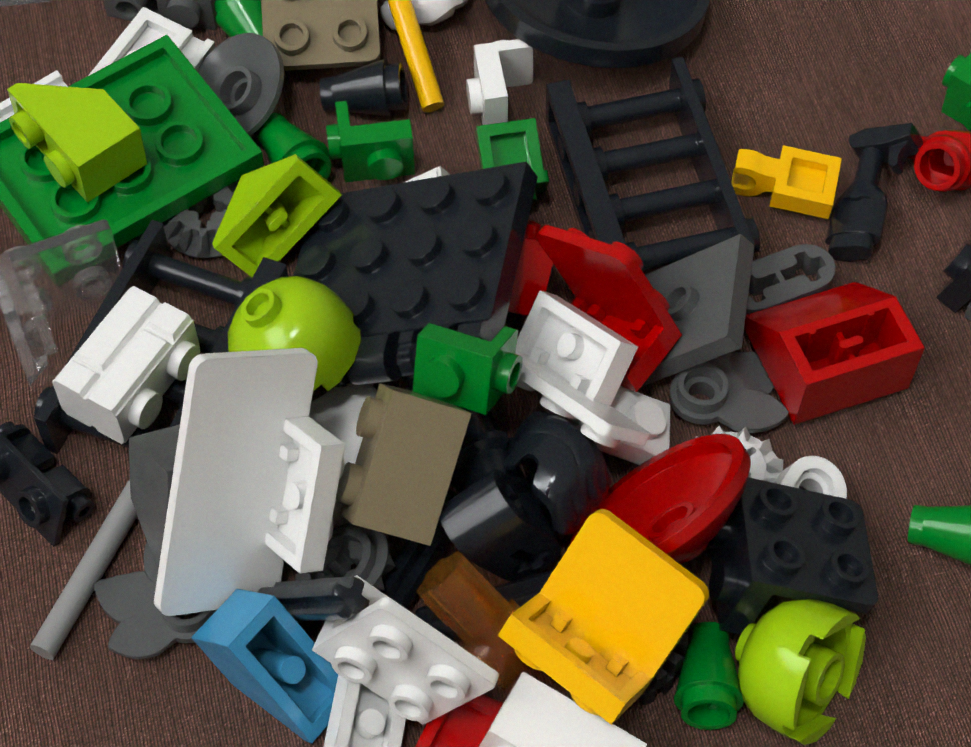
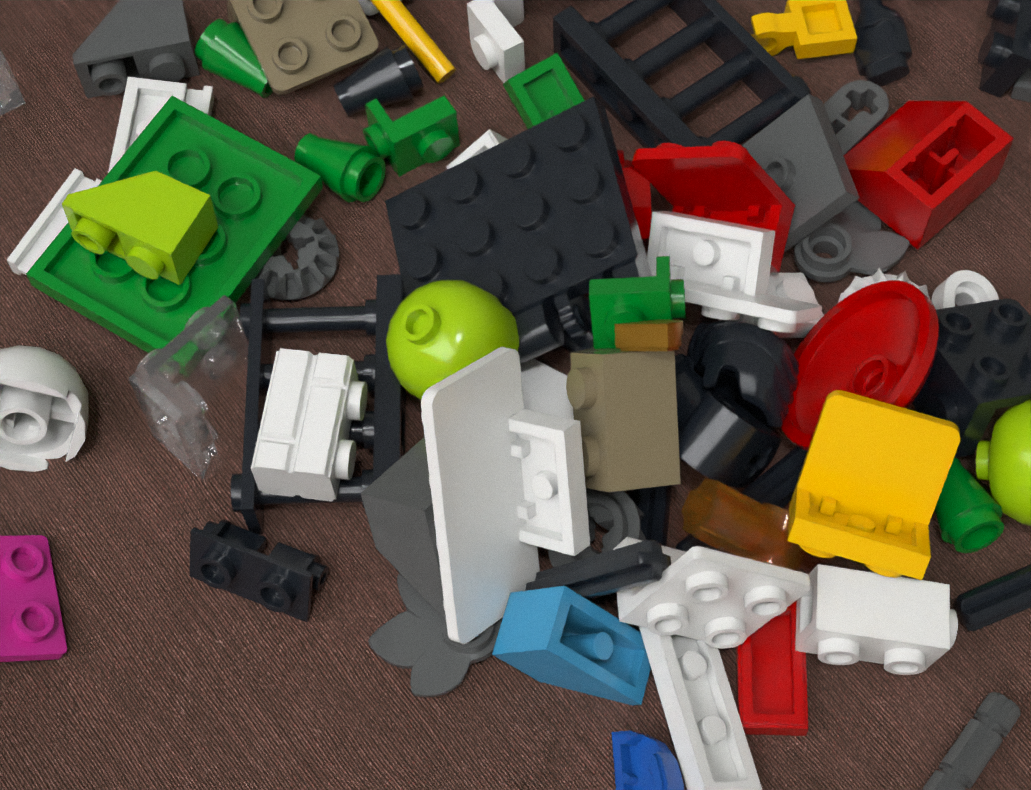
camera: 20 degrees left, 5 degrees up
(87, 573) = (355, 630): light grey bar -> none
(246, 77) = (265, 95): dark grey dish -> none
(272, 212) = (358, 230): lime slope -> none
(451, 391) = (649, 335): none -> pearl gold tile

